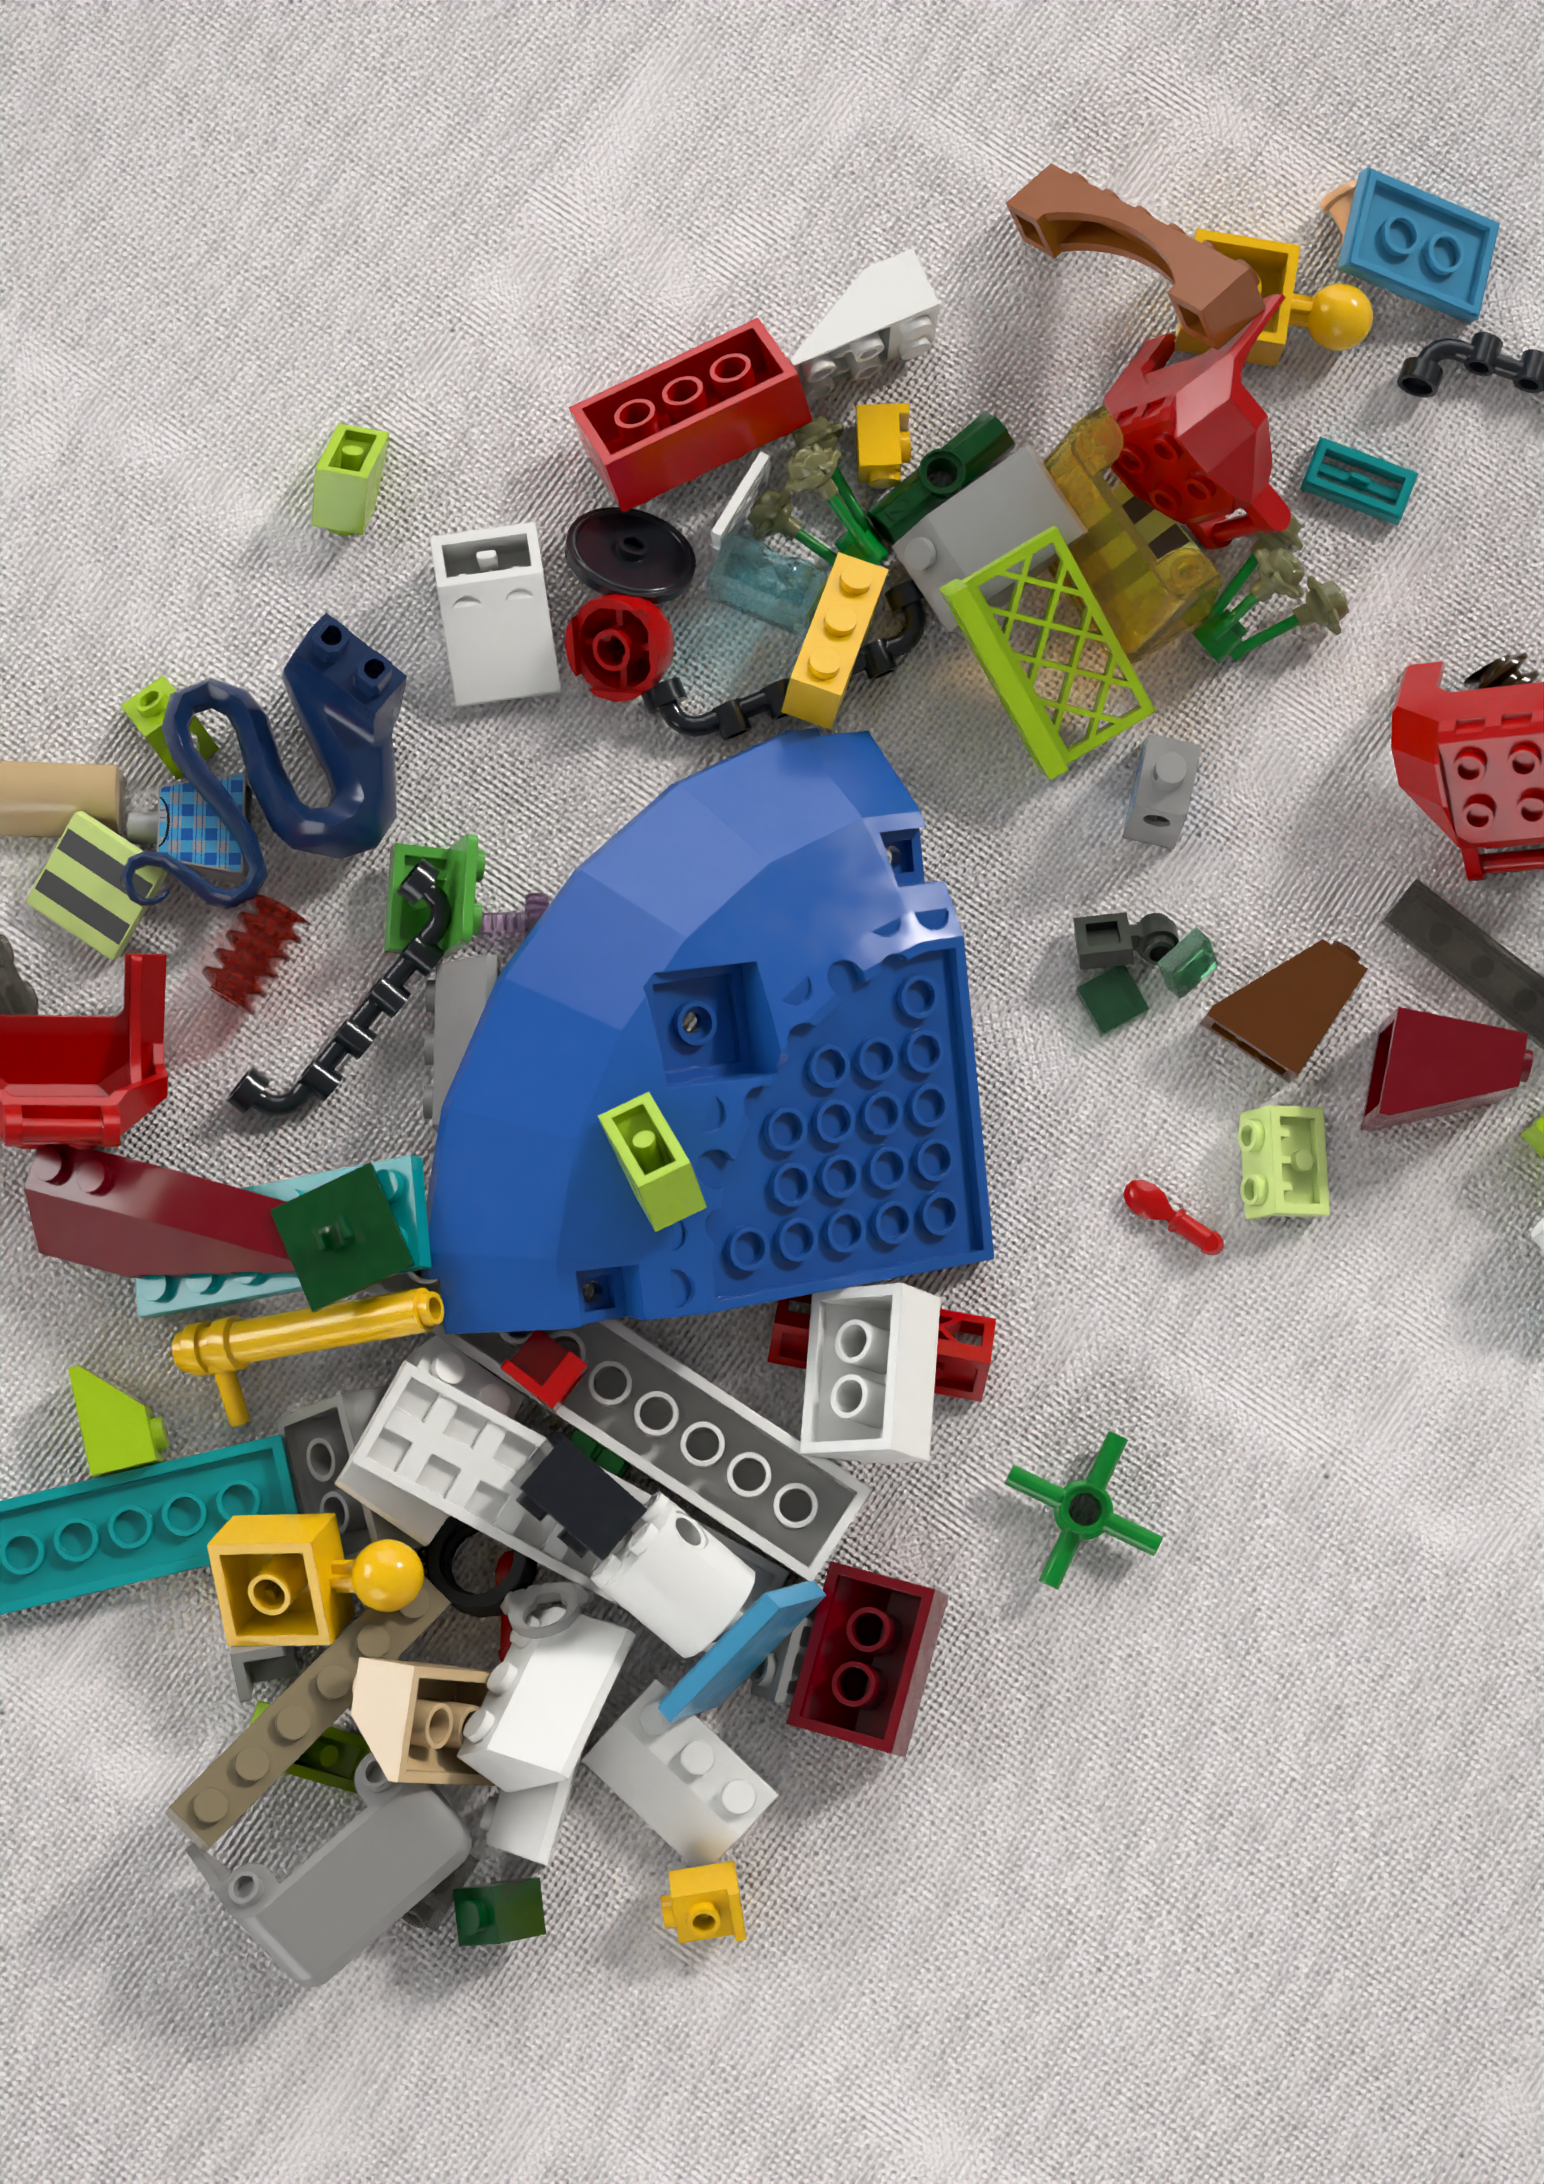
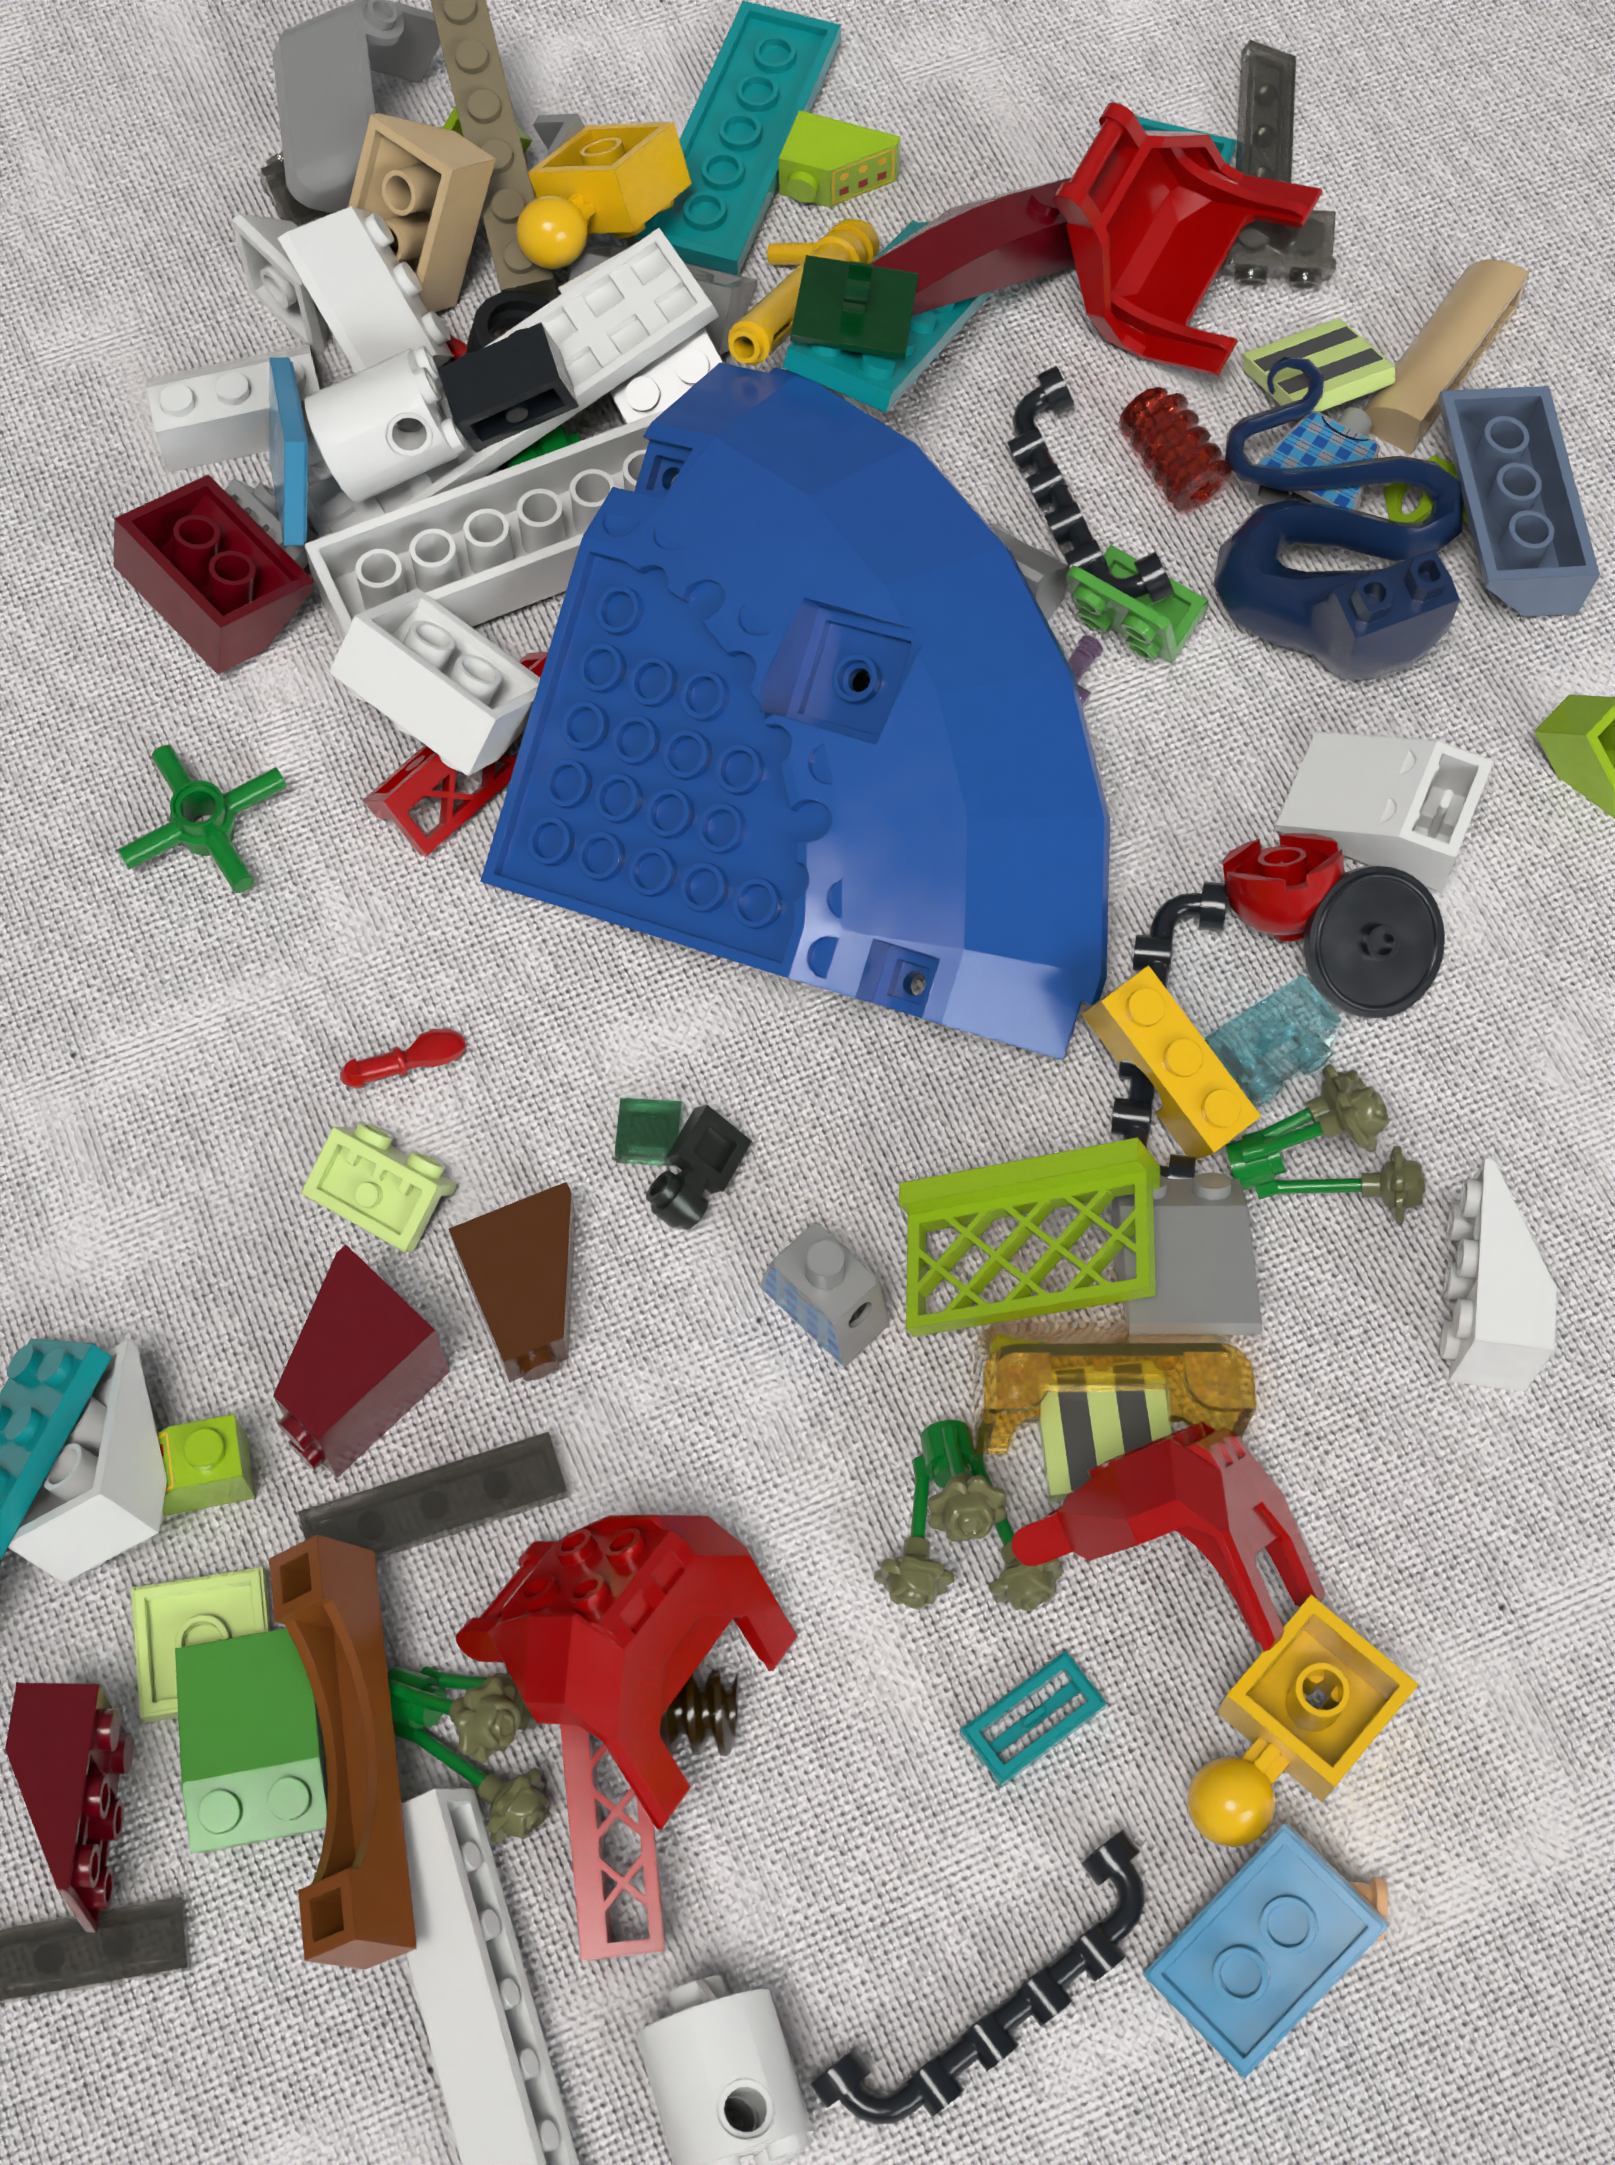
camera: 125 degrees right, 15 degrees down
(147, 650) = (1520, 498): none -> sand blue slope
(499, 1912) = (225, 195): dark green brick -> none
(524, 1601) = (458, 329): light grey piece -> none
(546, 1369) = (623, 422): red panel -> none
(653, 1161) = (740, 530): lime slope -> none
(691, 414) = (1492, 1062): red brick -> none
(704, 1903) = (119, 355): yellow brick -> none
(739, 506) = (1383, 1065): white window -> none
(881, 444) = (1358, 1244): yellow brick -> none
(963, 458) = (1292, 1316): dark green piece -> none
(1188, 963) = (632, 1211): clear green tile -> none
(1209, 290) = (1321, 1569): dark orange arch -> none

